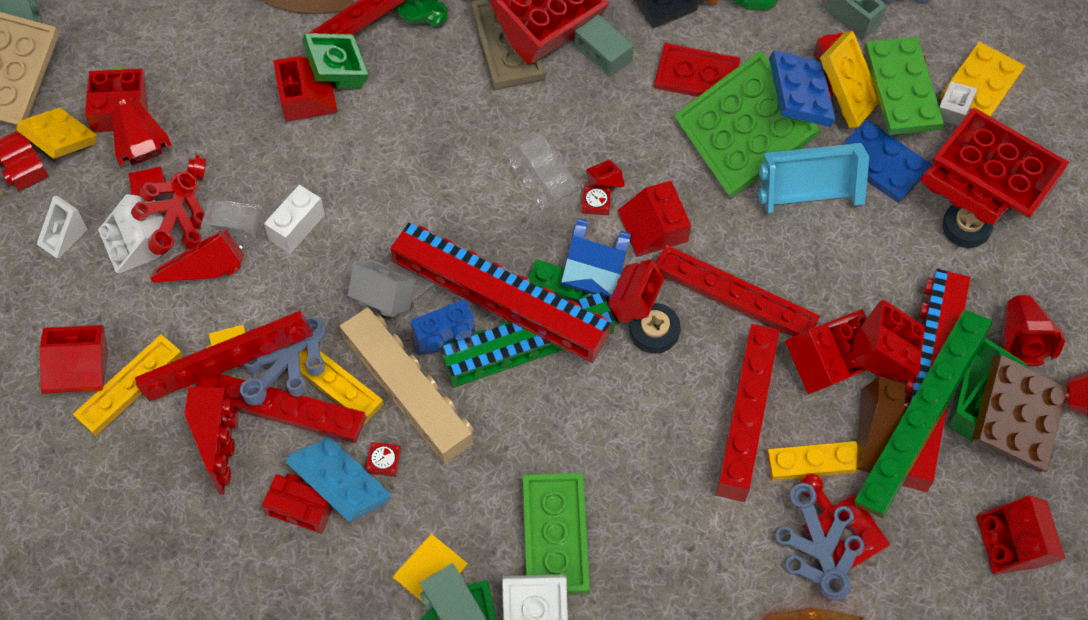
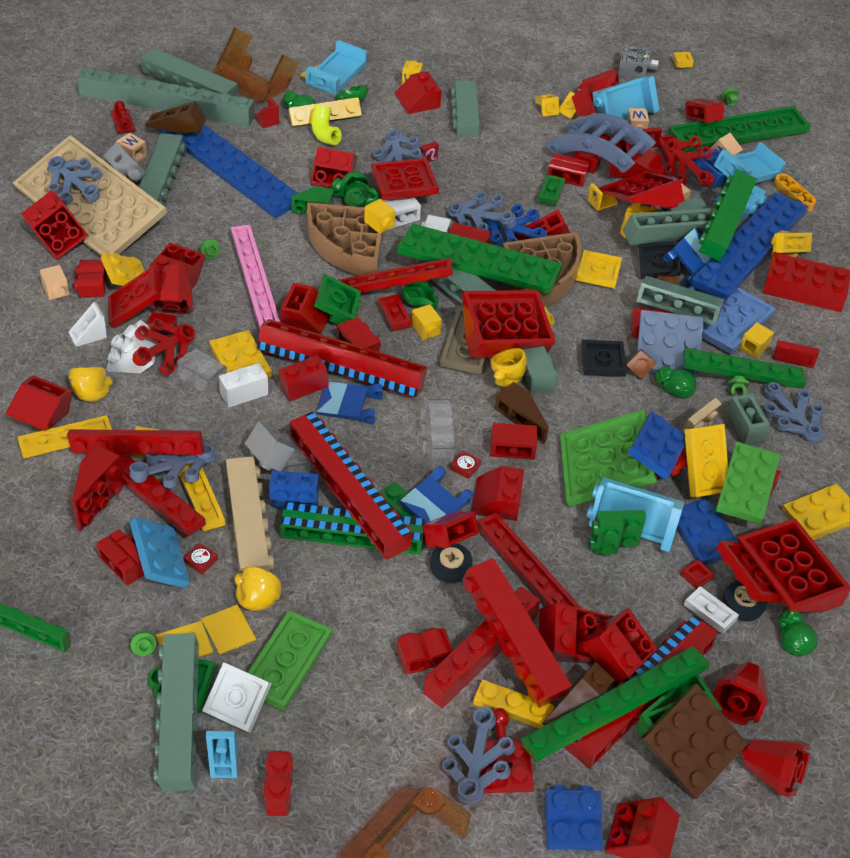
camera: 25 degrees right, 15 degrees down
(94, 163) = (134, 296): none -> red tile
(113, 304) = (89, 383): none -> yellow piece
(136, 55) = (210, 248): none -> bright green plate
(197, 167) = (201, 329): red plate -> none
(205, 260) = (171, 383): red slope -> none
(220, 74) = (254, 274): none -> bright pink plate
(260, 179) = (238, 352): none -> yellow plate
(358, 177) = (303, 378): none -> red brick
(384, 132) = (343, 358): none -> red brick
(387, 99) = (358, 333): none -> red brick
(389, 596) = (143, 643): none -> bright green plate
(404, 43) = (394, 312): none -> red plate
(419, 183) = (348, 401): none -> blue flag
(448, 40) = (426, 322): none -> yellow brick
(467, 528) = (228, 629): none -> yellow window
(473, 469) = (257, 588): none -> yellow piece
(575, 56) = (509, 366): none -> yellow piece
(605, 174) = (481, 448): red slope -> none
(617, 104) = (521, 409): none -> reddish brown slope
(633, 146) = (513, 441): none -> red brick
(691, 69) = (589, 408): red tile -> none
(691, 446) = (423, 650): none -> red brick
(785, 384) = (516, 633): none -> red brick
(803, 208) = (616, 530): none -> green plate
(811, 29) = (704, 416): none -> tan plate
(903, 215) = (697, 574): none -> red tile
(942, 251) = (711, 610): none -> white plate
(946, 557) = (573, 818): none -> blue plate
(956, 103) = (785, 510): white slope -> none
(1036, 238) = (796, 635): none -> green hair

